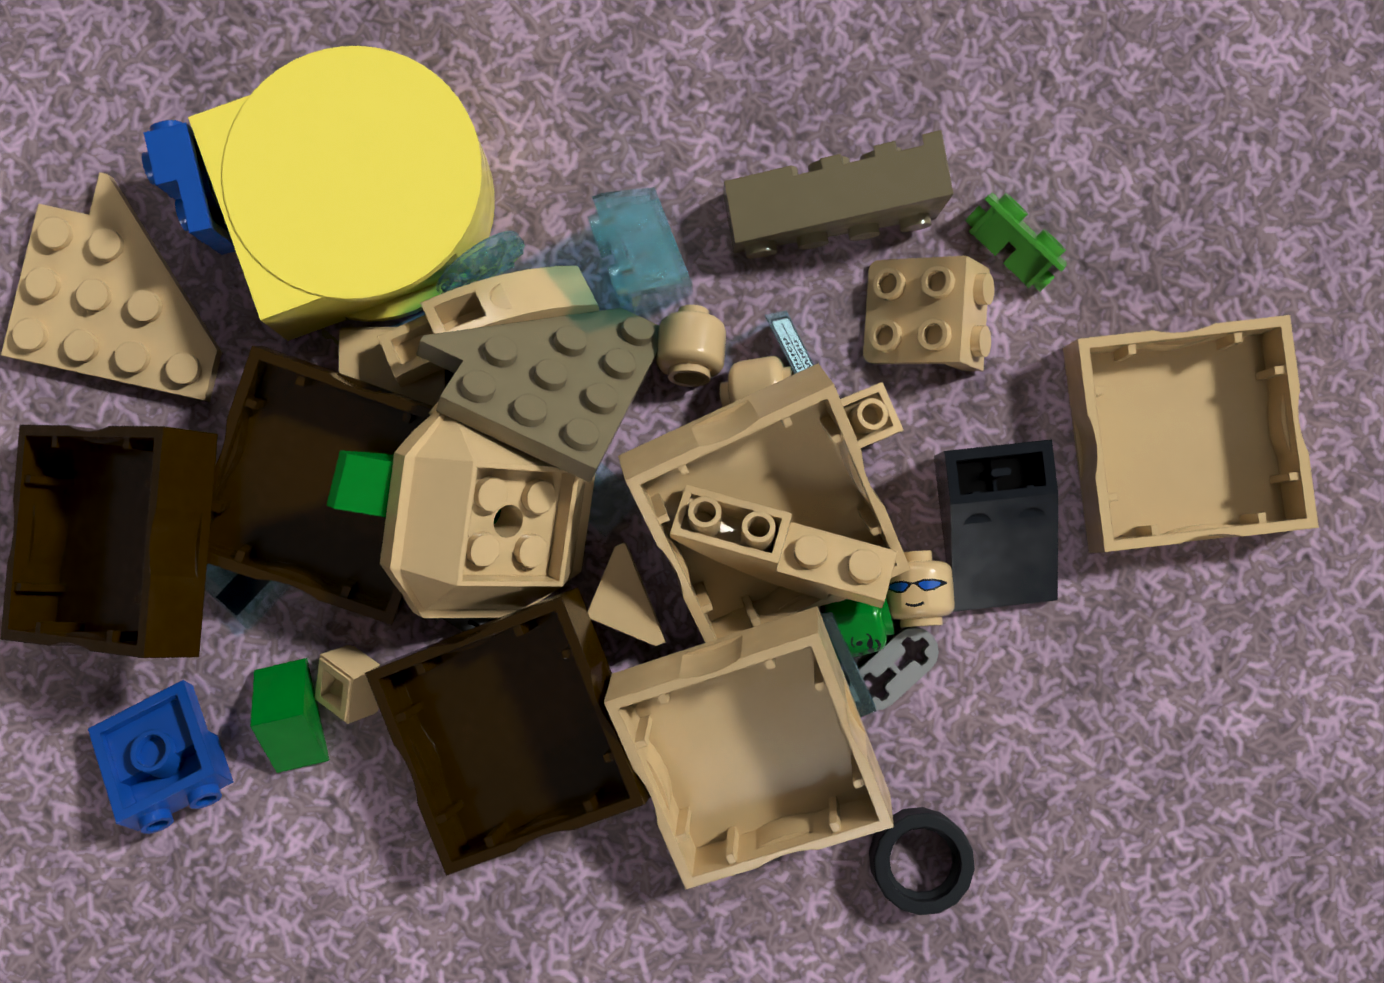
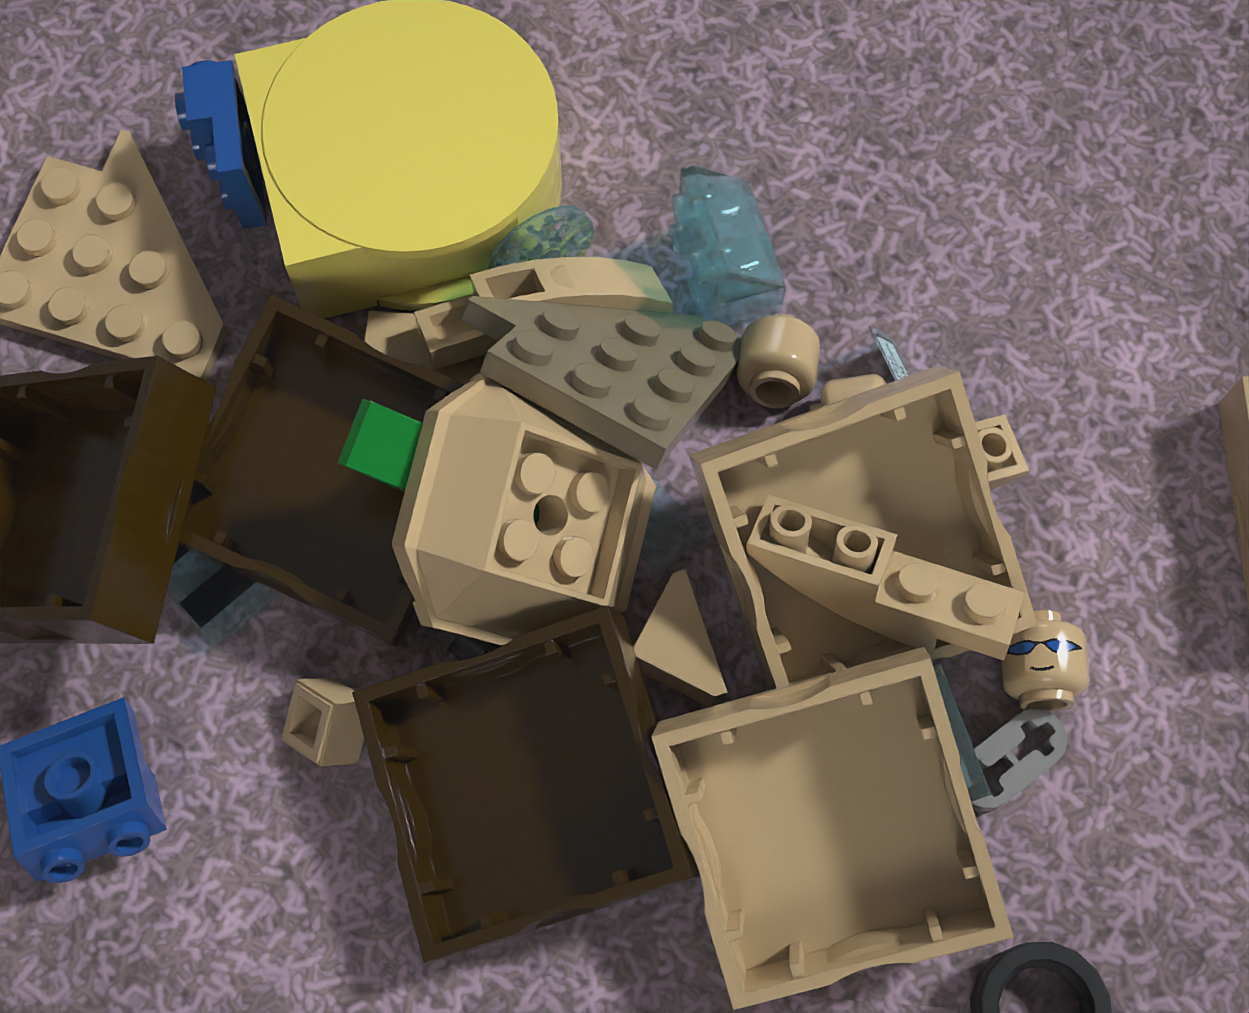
camera: 10 degrees right, 15 degrees down
(287, 716) = (246, 758): green slope -> none
(839, 198) = (962, 209): dark tan wedge -> none
(862, 625) = (979, 689): green head -> none
(928, 312) = (1061, 345): tan bracket -> none
(1000, 523) = (1146, 587): black slope -> none
(1033, 252) = (1151, 258): bright green hinge -> none

